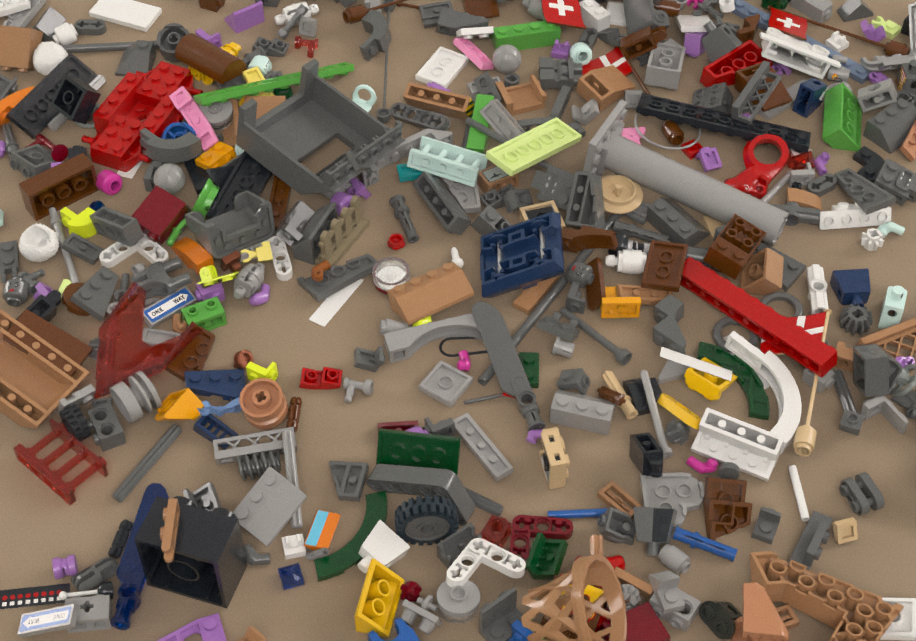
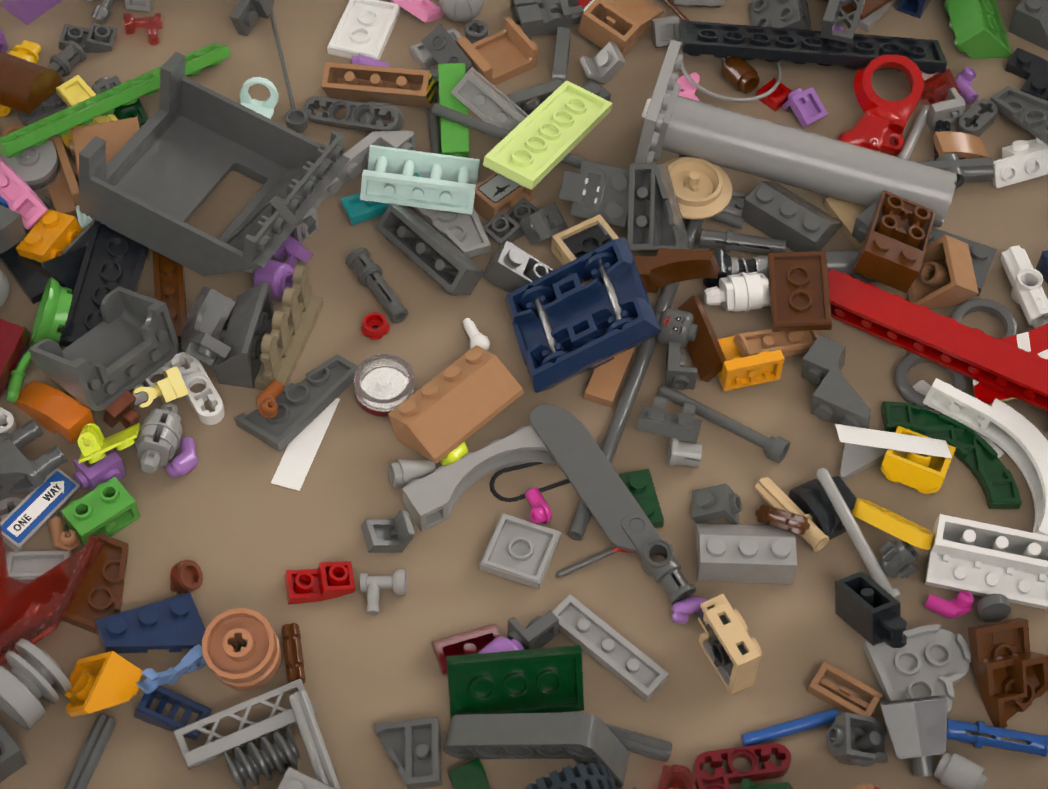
camera: 15 degrees left, 5 degrees up
(255, 371) = (222, 598): neon yellow bracket -> none
(263, 64) = (81, 66): light aqua head -> none

